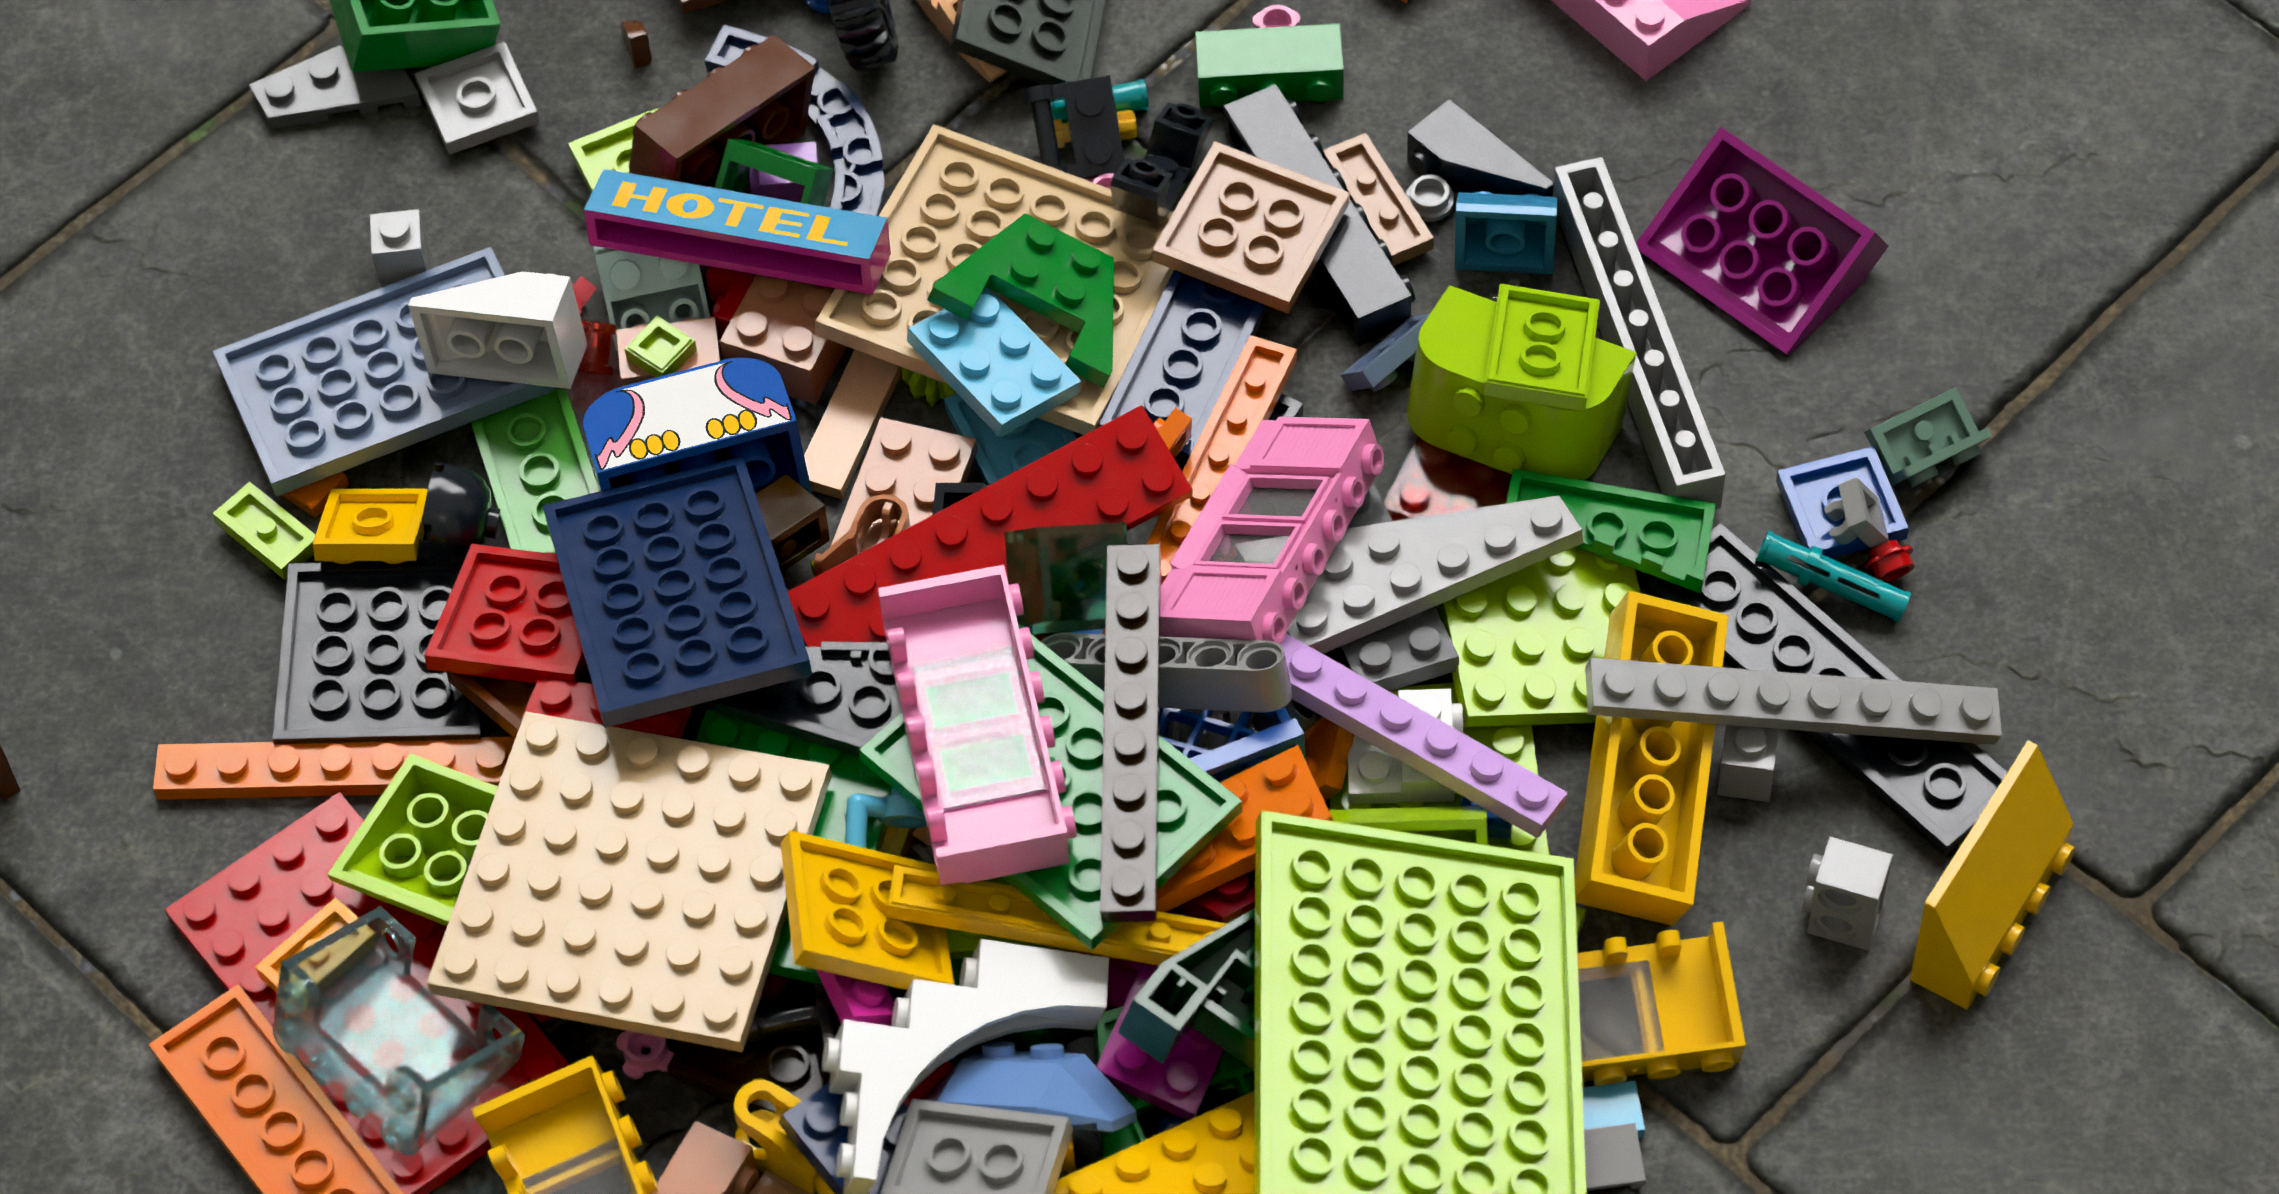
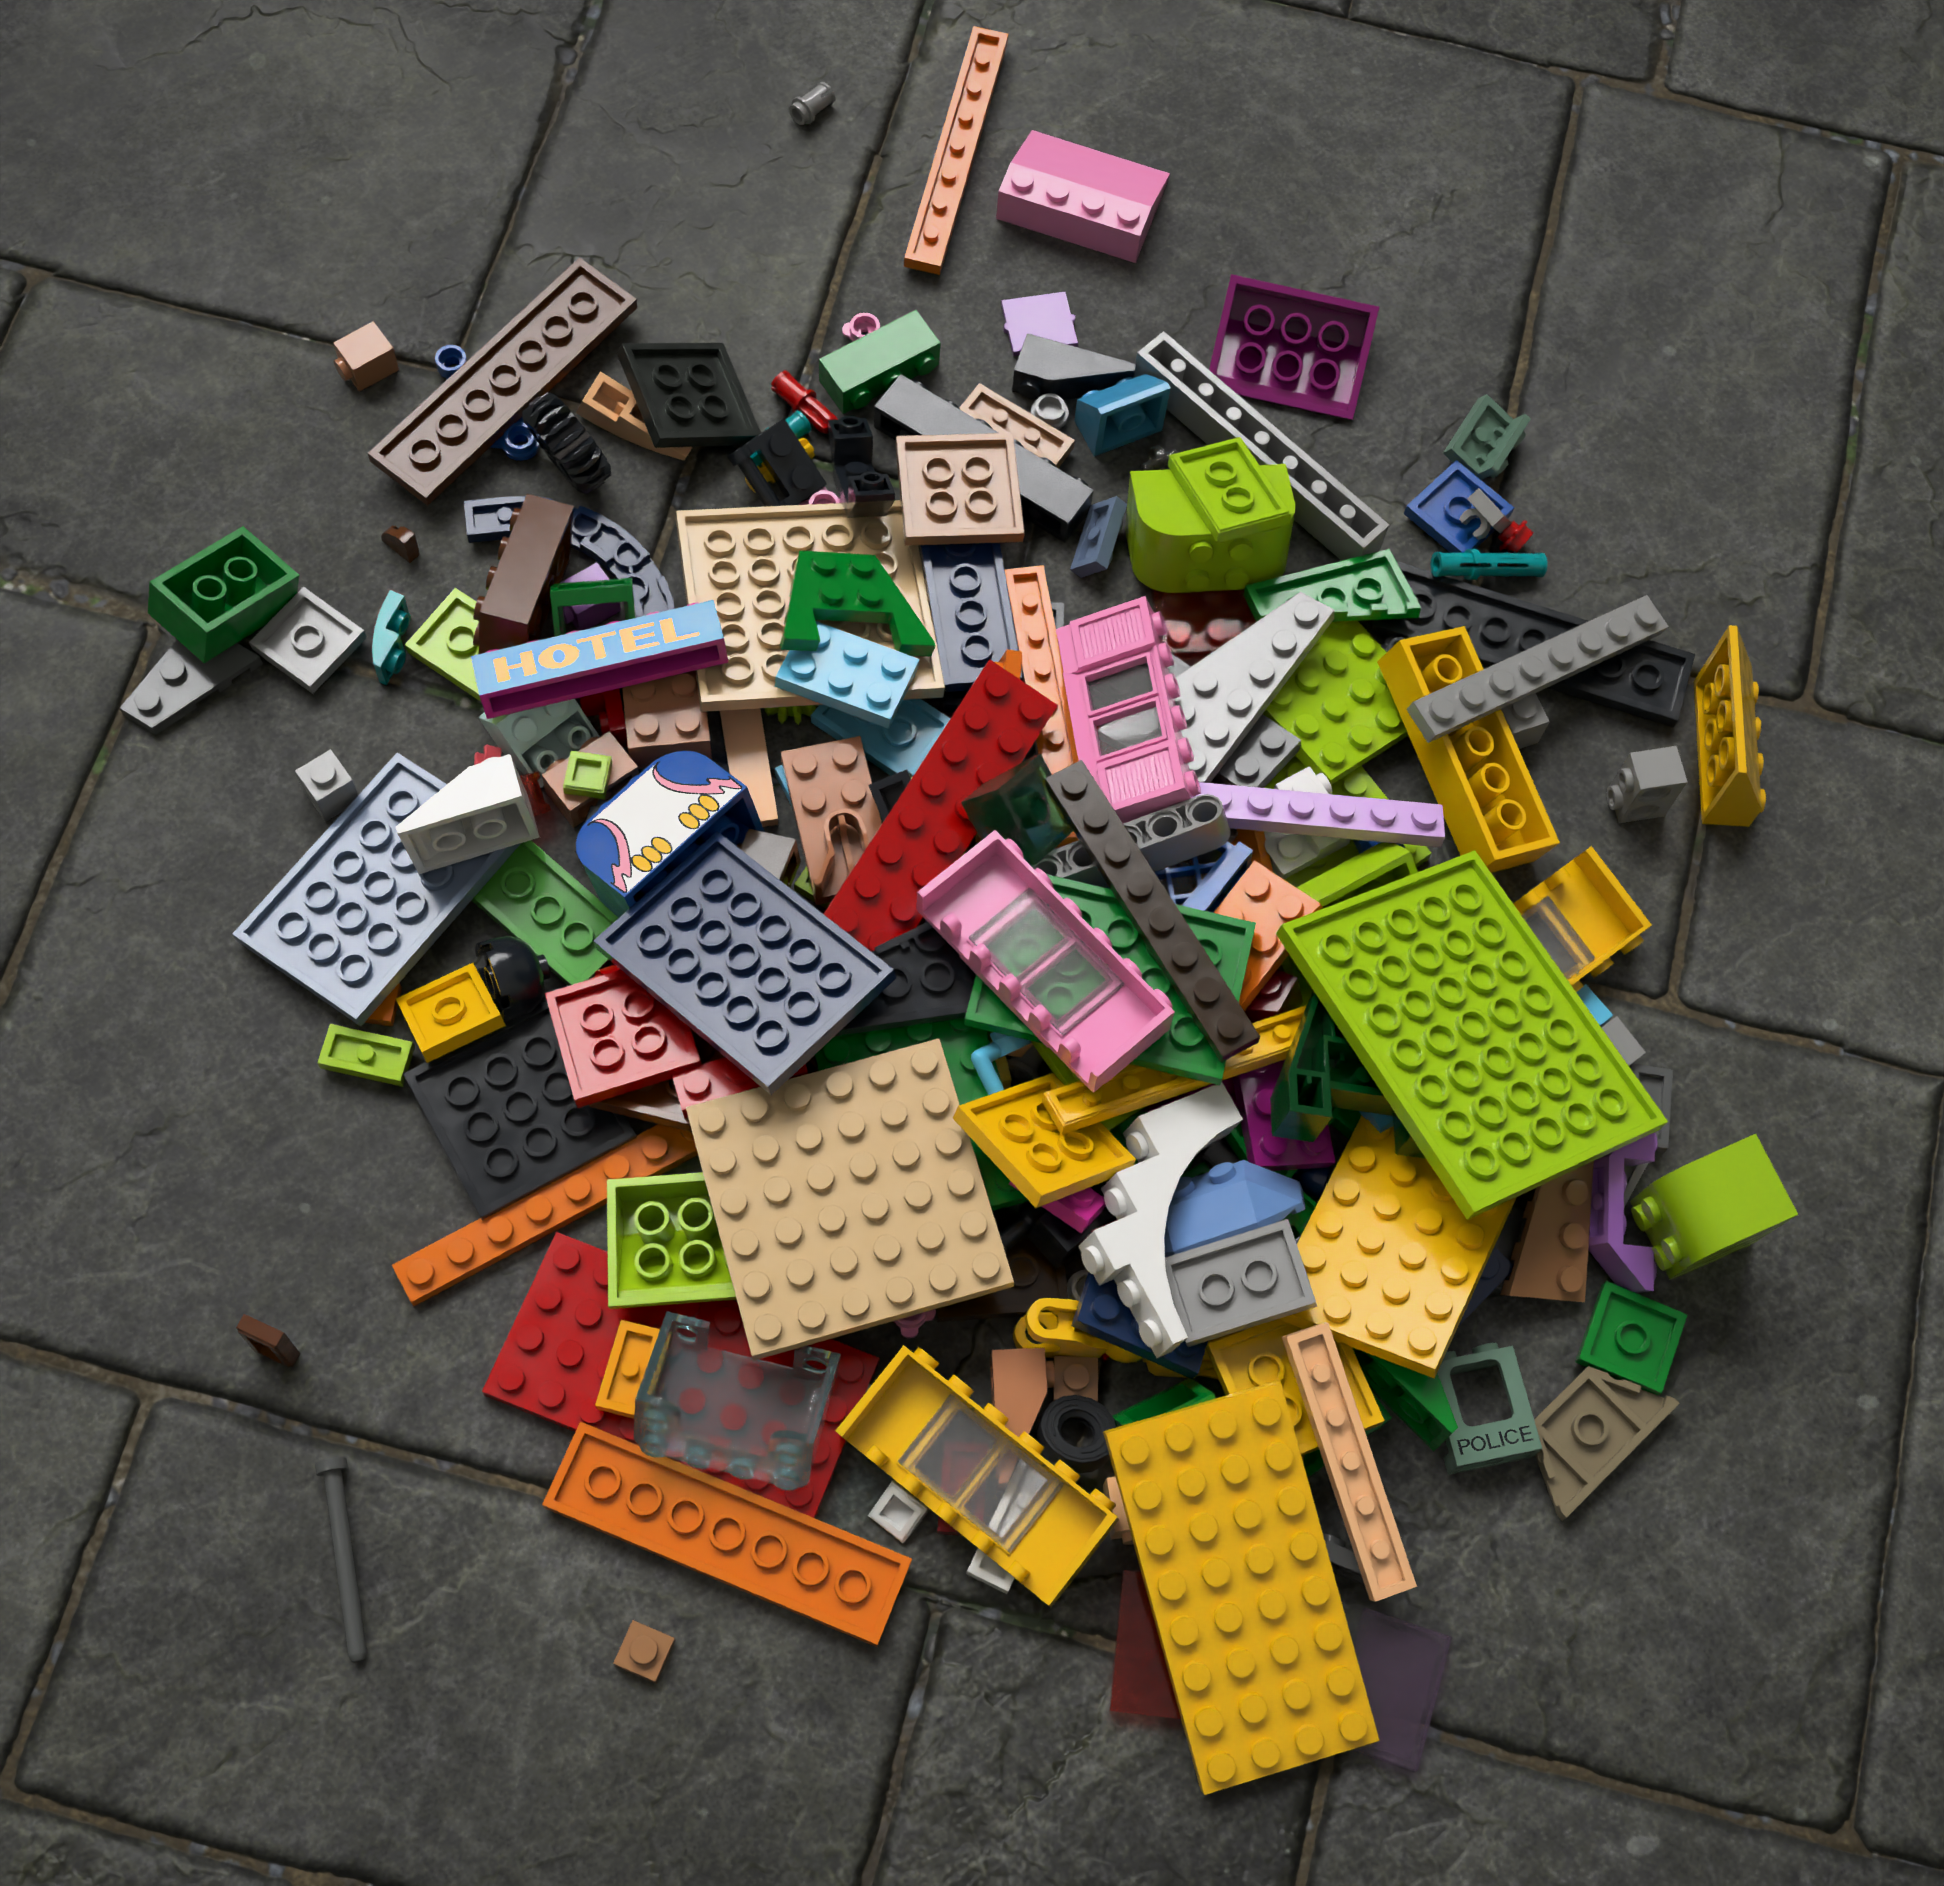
camera: 40 degrees left, 10 degrees up
(547, 138) = (387, 645): none -> teal slope
(1157, 70) = (802, 400): none -> red axle
(1492, 97) = (1041, 316): none -> piece

